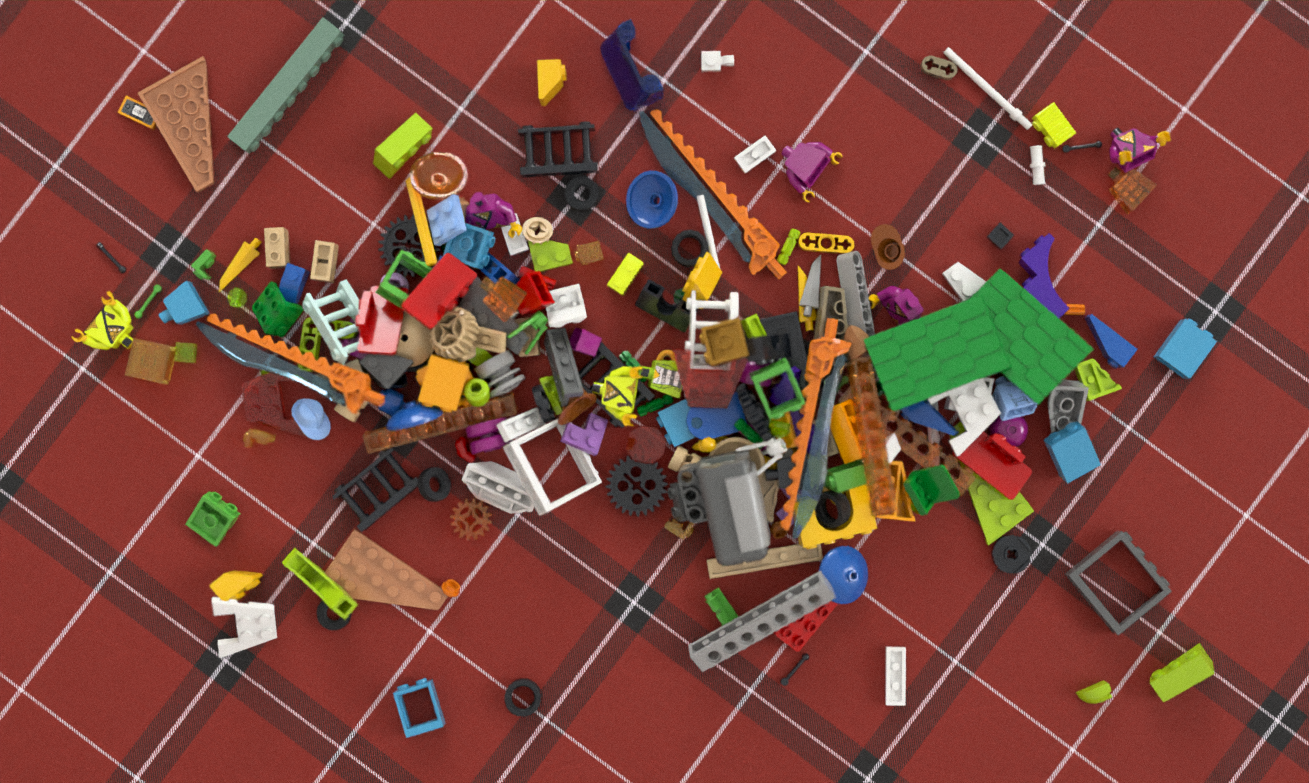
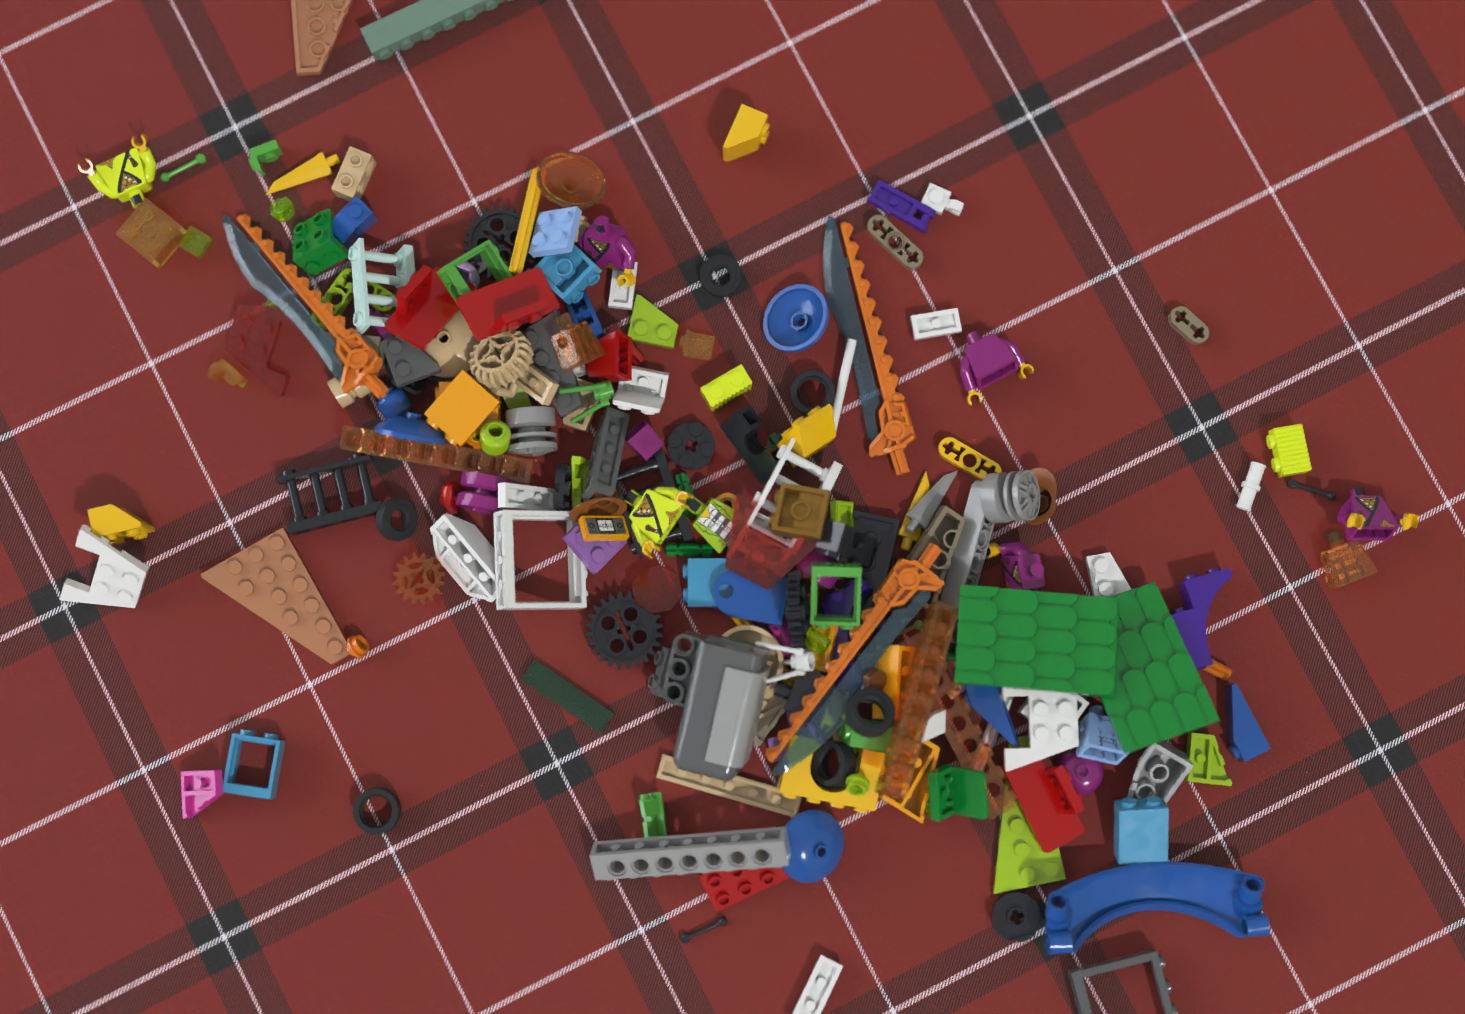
camera: 20 degrees right, 5 degrees down
(122, 269) = (172, 119): black hinge -> none
(183, 305) = (219, 189): dark azure torso -> none
(213, 518) = (131, 438): bright green plate -> none
(311, 418) = (297, 381): light blue piece -> none
(320, 583) = (212, 564): lime arch -> none
(324, 261) = (398, 214): tan brick -> none
(326, 622) = (198, 606): black tyre -> none
(389, 743) = (199, 790): none -> dark pink wing
(401, 145) = (546, 128): lime wedge -> none
(532, 225) = (649, 284): tan gear -> none
(568, 166) = (720, 239): black fence -> none
(587, 419) = (603, 528): none -> tile
(618, 551) = (567, 696): none -> clear green plate
(622, 339) = (696, 433): none -> black plate
(634, 90) = (835, 189): clear blue windscreen -> none
(675, 528) = (645, 699): clear yellow bracket -> none
(682, 458) = (689, 622): tan wheel -> none
(688, 78) = (901, 206): none -> dark purple plate
(705, 445) = (723, 621): yellow bar -> none
(711, 107) = (878, 234): none -> dark tan beam
(748, 432) = (779, 629): green axle -> none
(777, 531) = (759, 760): dark orange plate -> none
(788, 246) = (925, 444): lime axle -> none
(834, 437) = (875, 679): none -> reddish brown tile
(843, 448) = (877, 697): none -> black tyre
(855, 336) = (952, 578): medium nougat brick -> none
(856, 516) = (857, 784): none -> lime plate
(868, 257) = (1010, 496): none -> light grey wheel
(1000, 236) = (1171, 545): black plate -> none
(1014, 113) = (1252, 417): white bar -> none
(1138, 472) = (1200, 890): none -> blue panel
(1185, 348) = (1326, 775): dark azure brick -> none

